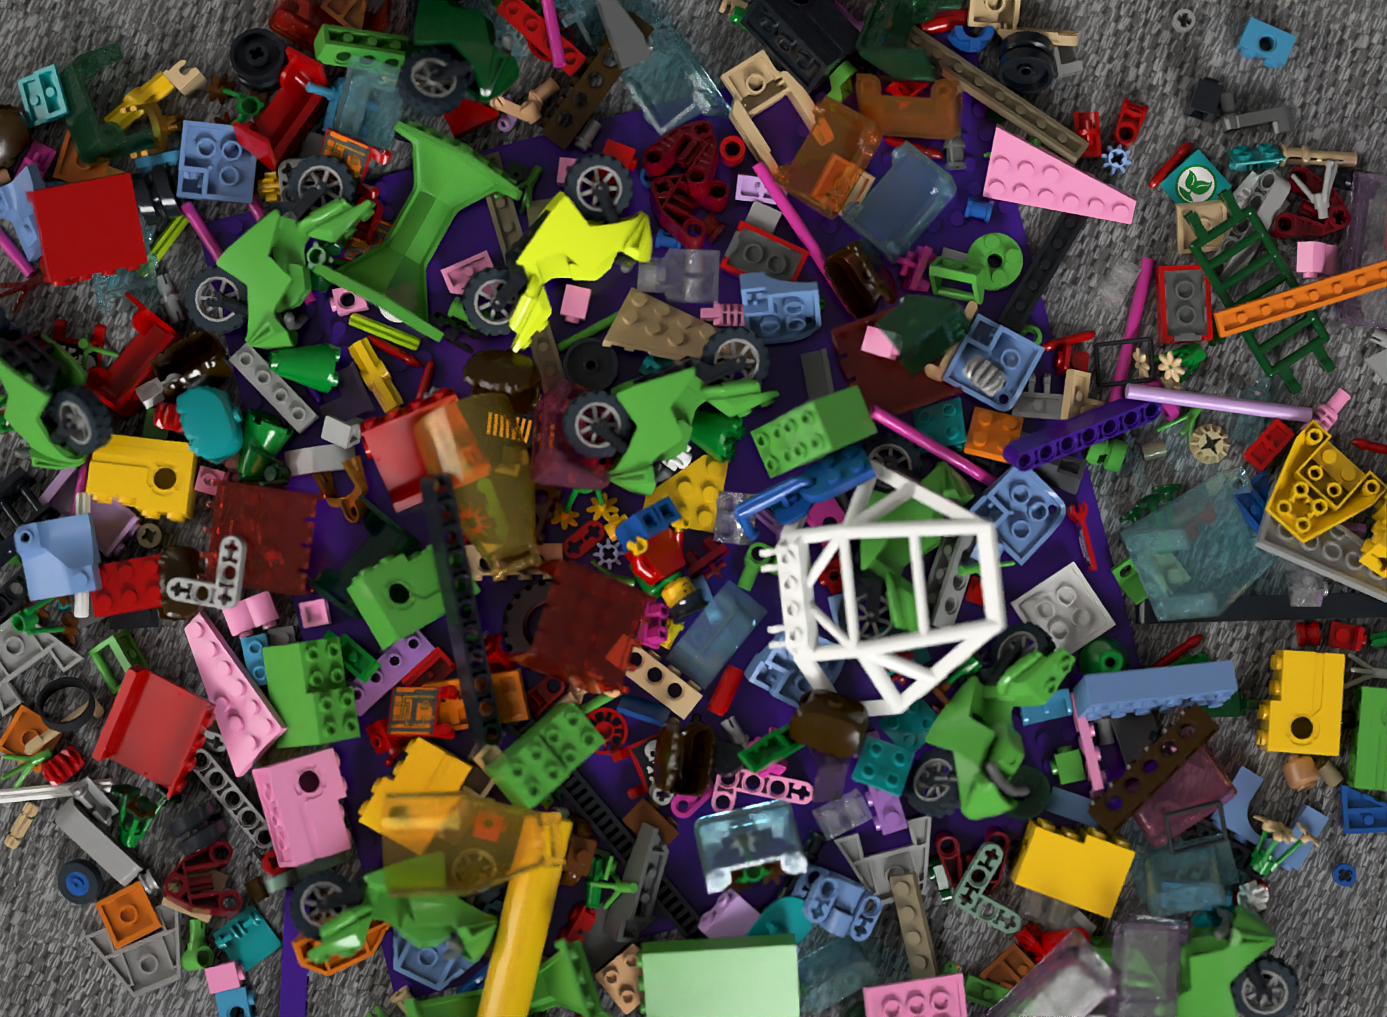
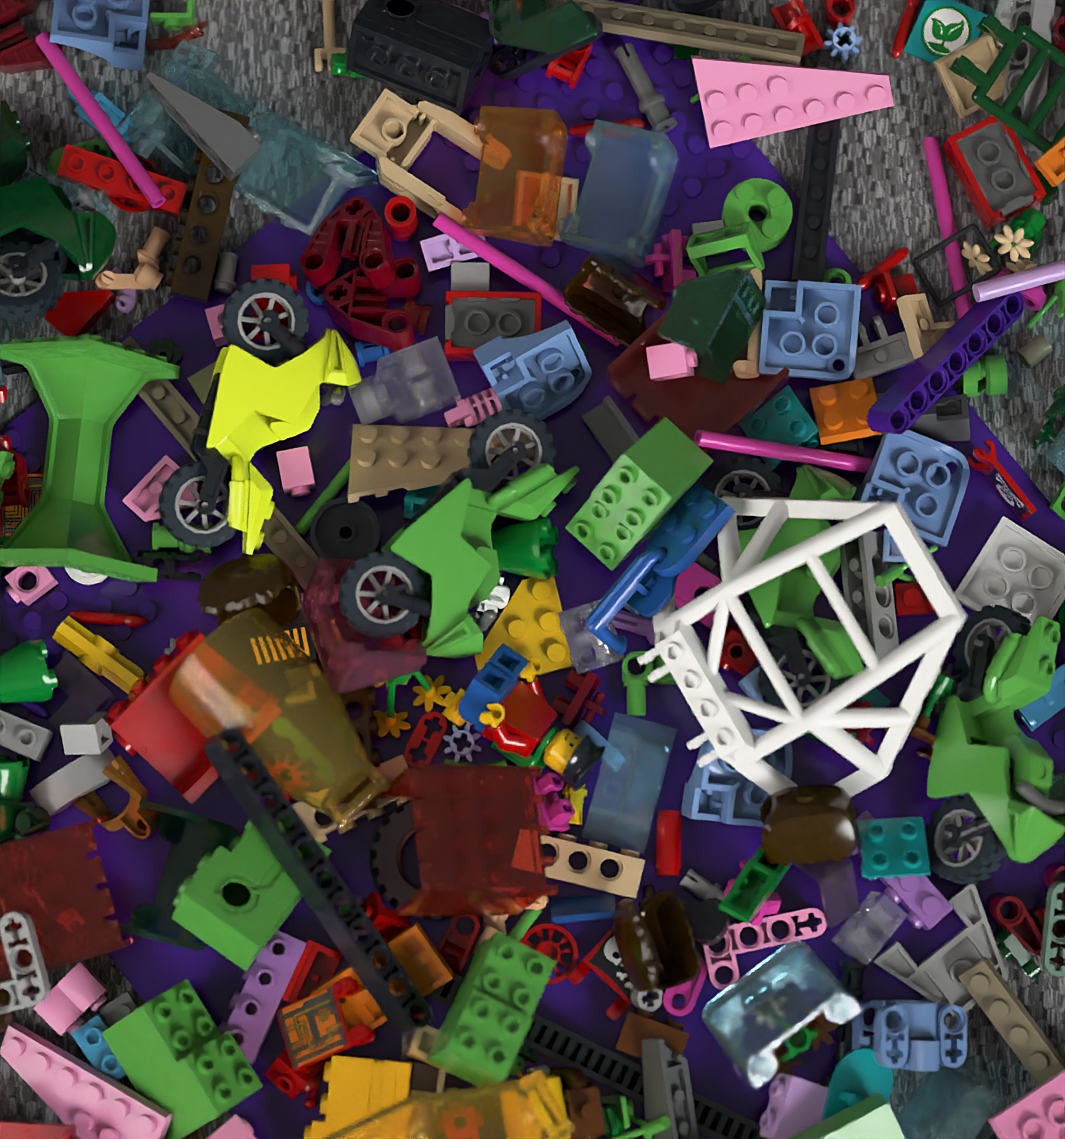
camera: 25 degrees left, 5 degrees down
(315, 613) = (147, 964): bright pink brick -> none
(355, 658) = (218, 996): green hinge -> none
(384, 331) = (87, 600): lime axle -> none
(426, 378) = (159, 632): red piece -> none
(528, 185) = (182, 359): bright green plant -> none
(841, 82) = (490, 85): bright green piece -> none
(910, 727) = (902, 791): teal hinge -> none
(912, 116) = (589, 87): clear orange windscreen -> none
(978, 209) = (712, 163): blue bush -> none
(984, 375) = (806, 344): light grey gear -> none
(1116, 285) = (908, 182): clear brick -> none

